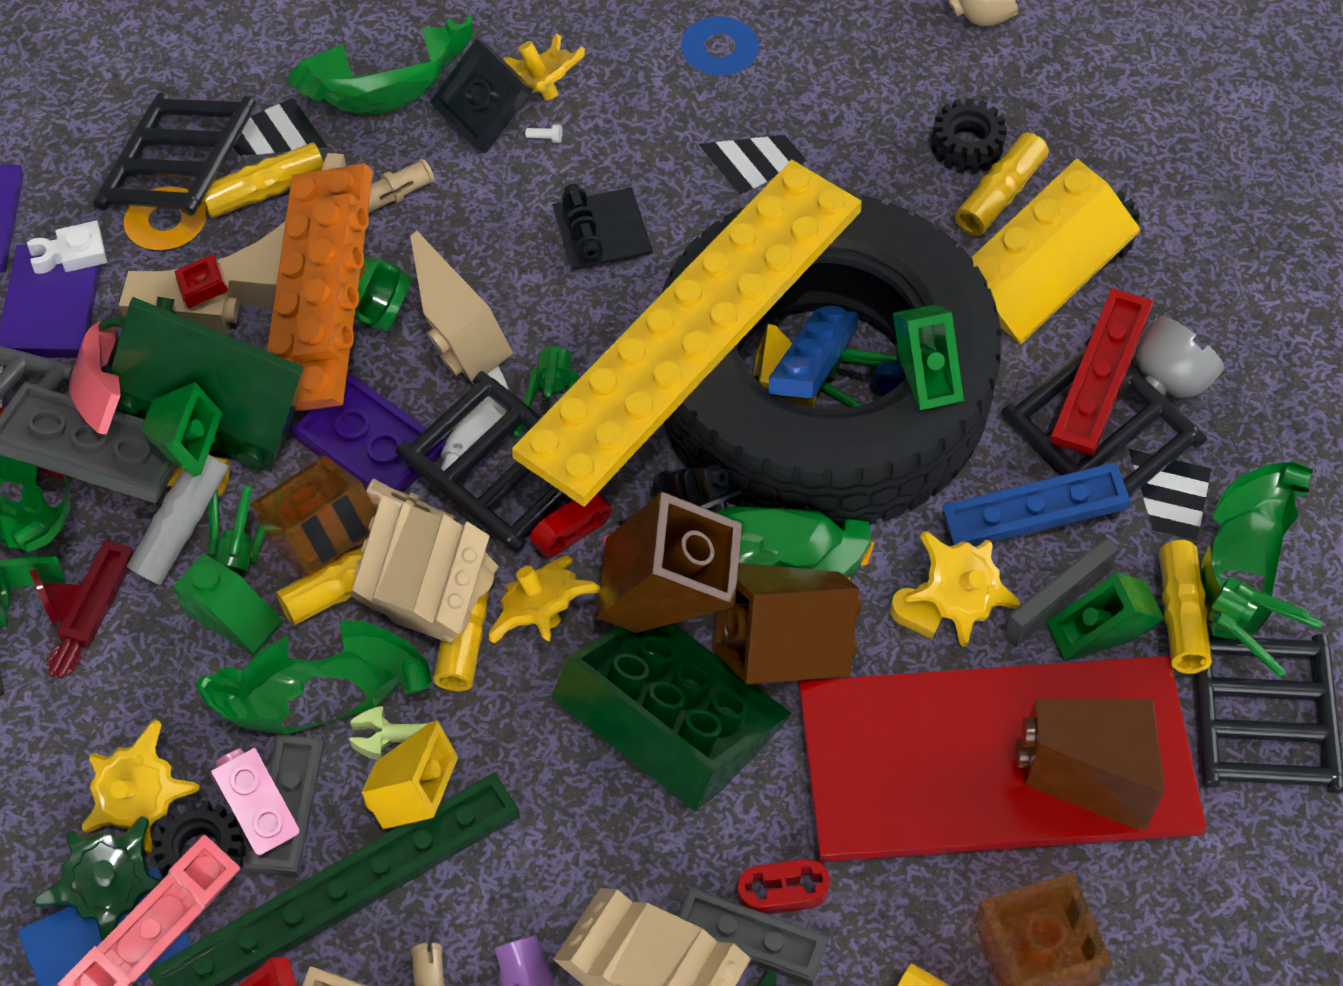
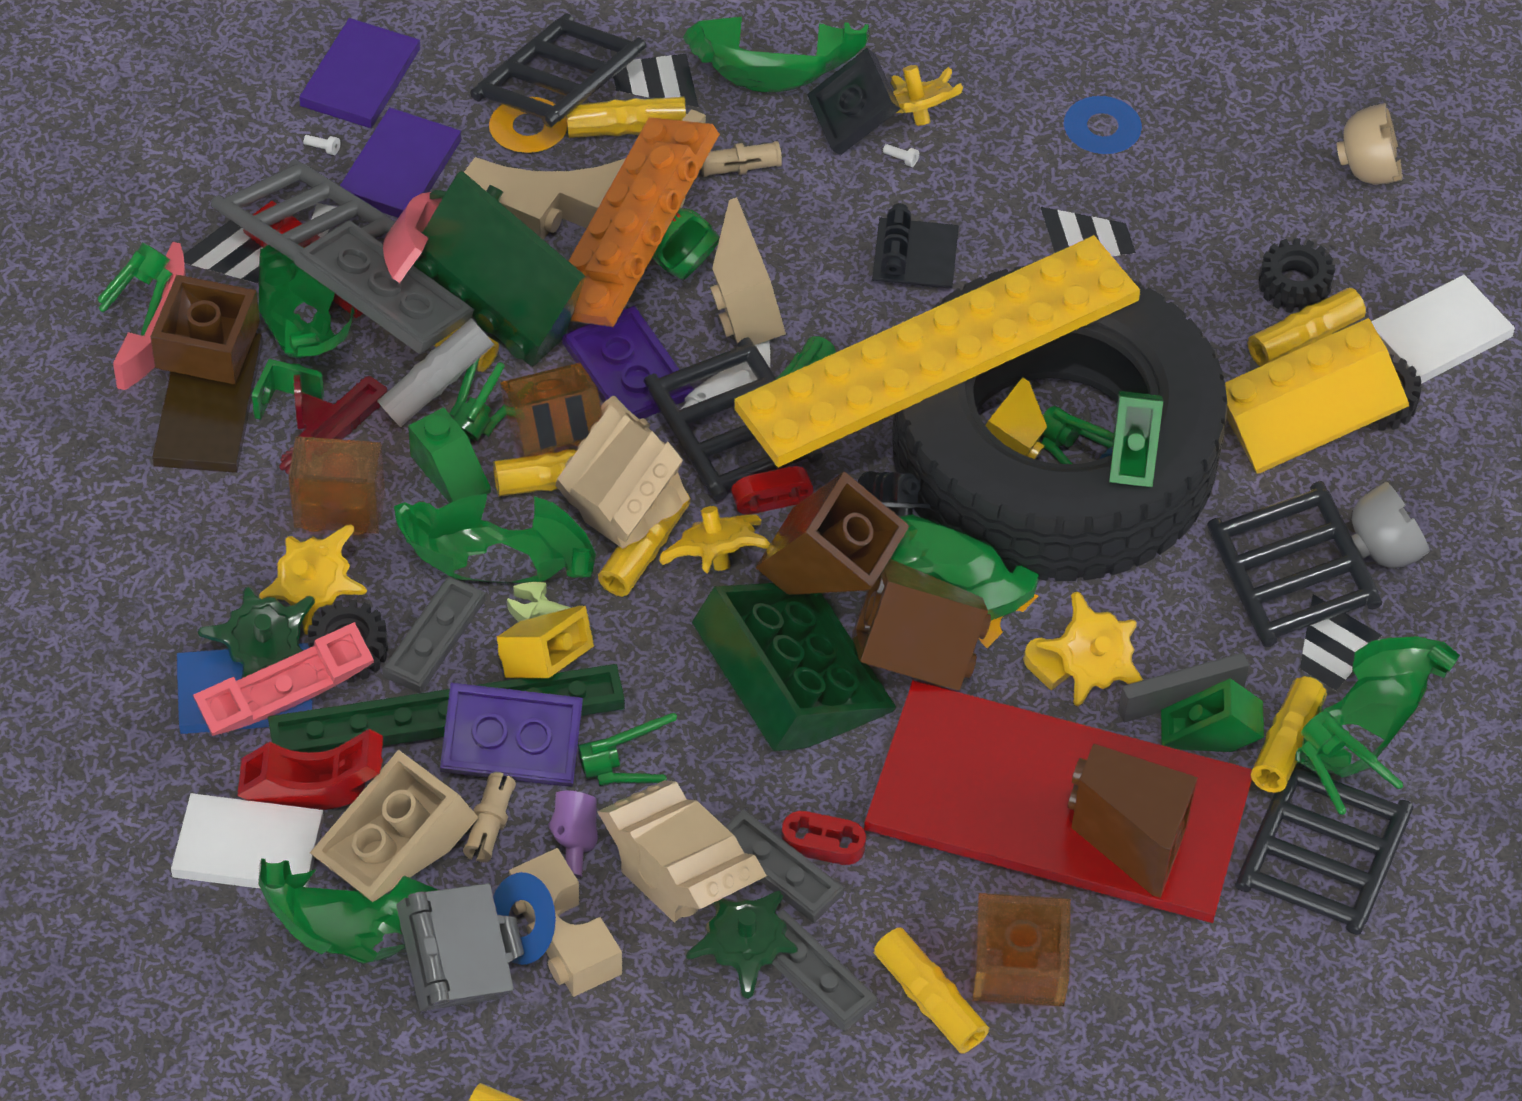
camera: 20 degrees right, 5 degrees down
(75, 247) = (437, 124): white plate -> none
(121, 678) = (337, 484): none -> clear orange brick
(183, 426) = (466, 295): green slope -> none
(201, 281) = (533, 183): red tile -> none
(254, 800) = (407, 617): bright pink bracket -> none
(416, 894) = (511, 734): none -> dark purple tile
(519, 880) = (601, 755): none -> green plant
(813, 352) = (1046, 410): blue plate -> none
(1037, 506) = (1197, 609): blue plate -> none
(1102, 372) = (1308, 512): red plate -> none
(1123, 141) = (1443, 328): none -> white tile

